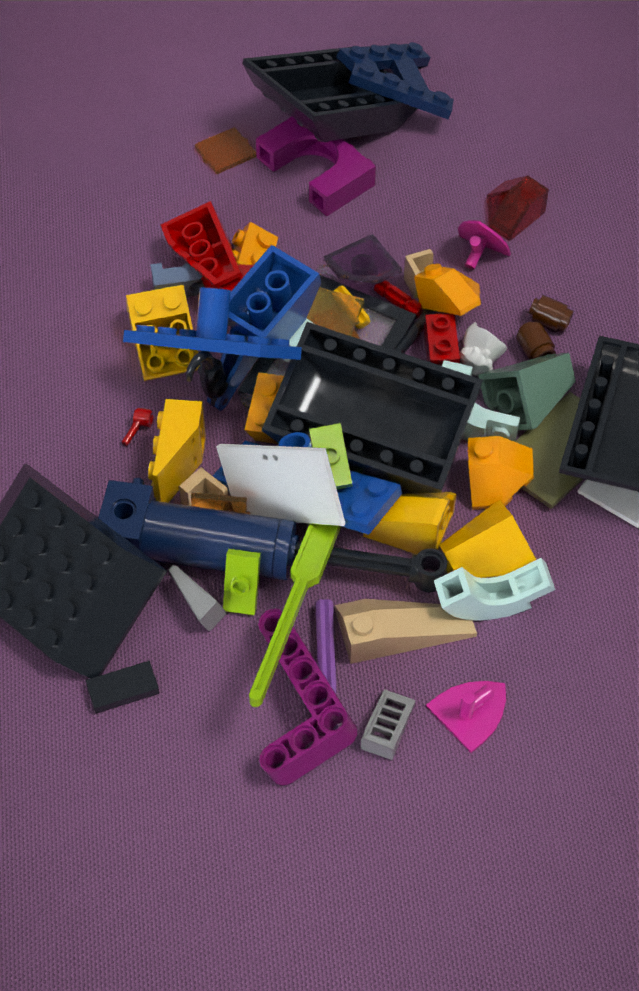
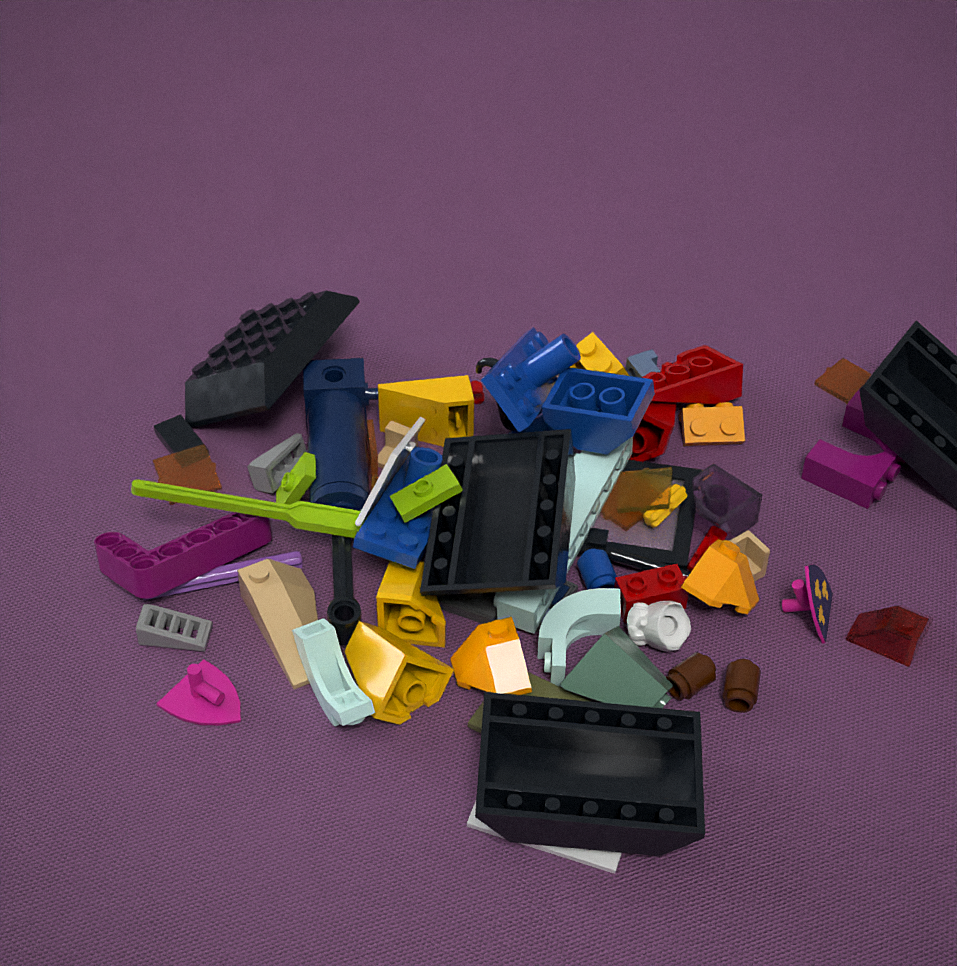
camera: 75 degrees right, 10 degrees down
(177, 686) = (188, 469): none -> clear orange piece

